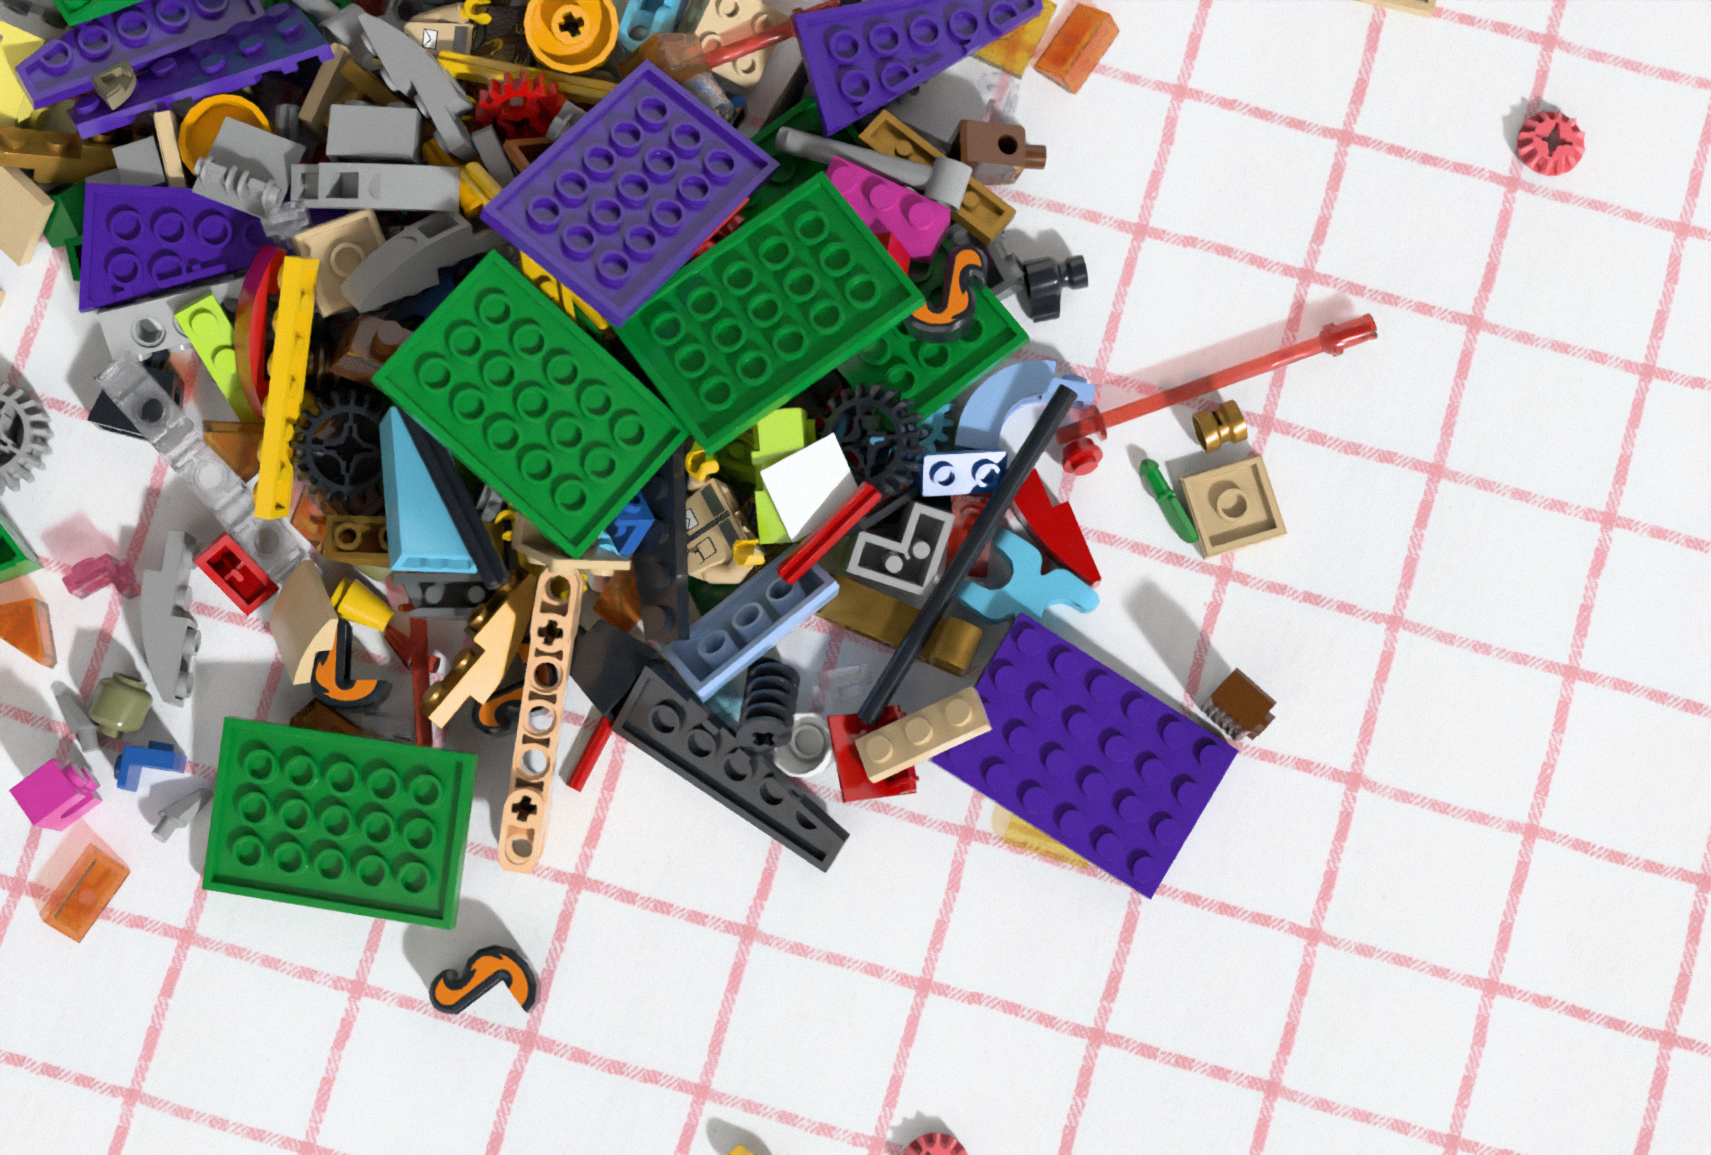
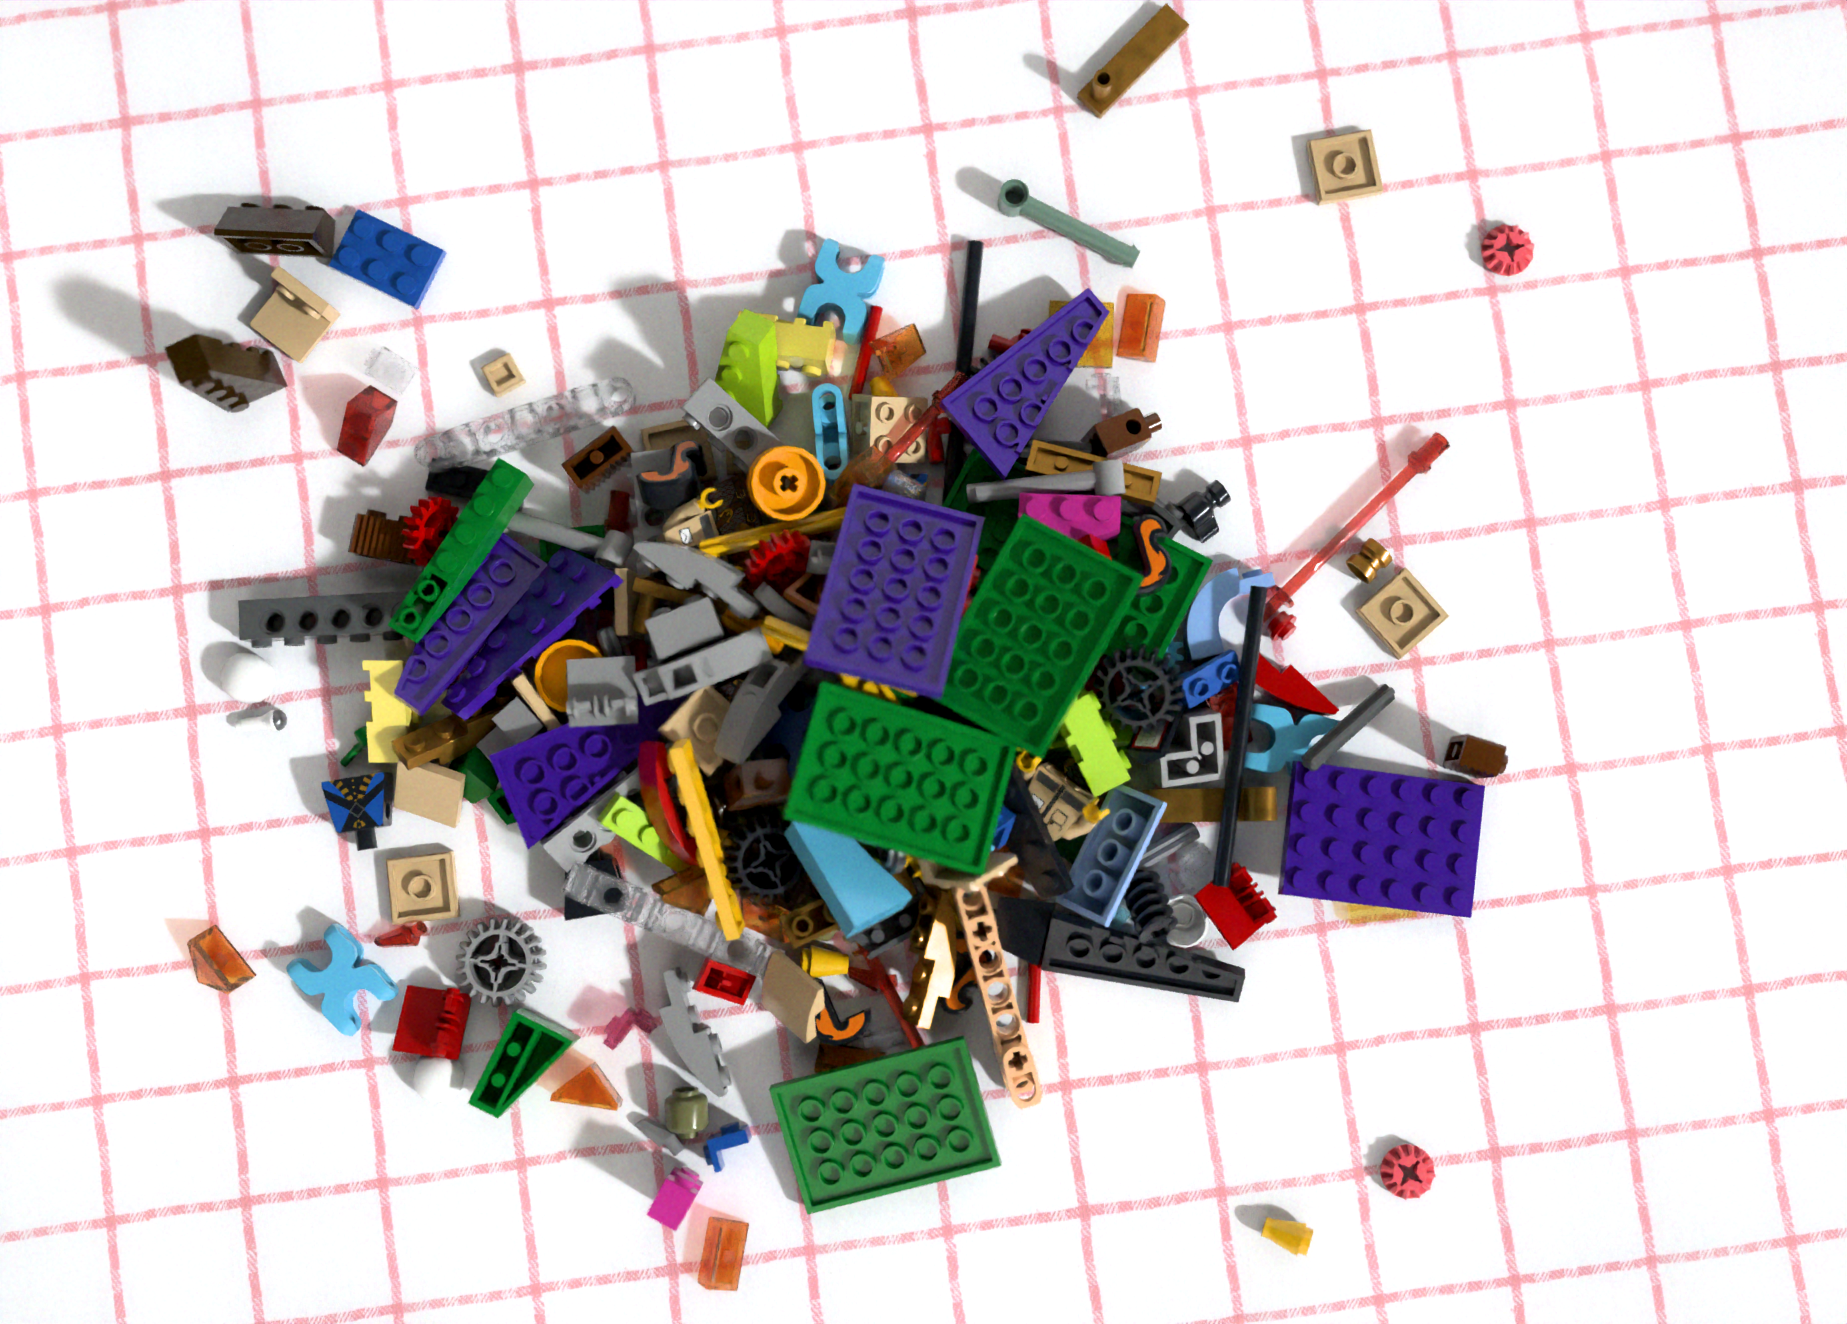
camera: 25 degrees left, 5 degrees up
(115, 84) = (471, 670): dark tan tile -> none
(180, 813) = (765, 1167): light grey bar -> none
(286, 221) = (651, 719): clear bracket -> none
(459, 505) = (879, 873): black axle -> none
(482, 973) = (1034, 1180): black animal -> none
(775, 72) = (934, 439): none -> red arm
(809, 485) = (1117, 743): white sticker -> none
(822, 652) = (1168, 845): none -> light grey axle
(828, 532) = (1142, 769): red axle -> none
(923, 734) = (1269, 879): tan plate -> none
(1102, 604) = (1348, 727): none -> dark grey axle
(1167, 500) = (1354, 629): green piece -> none

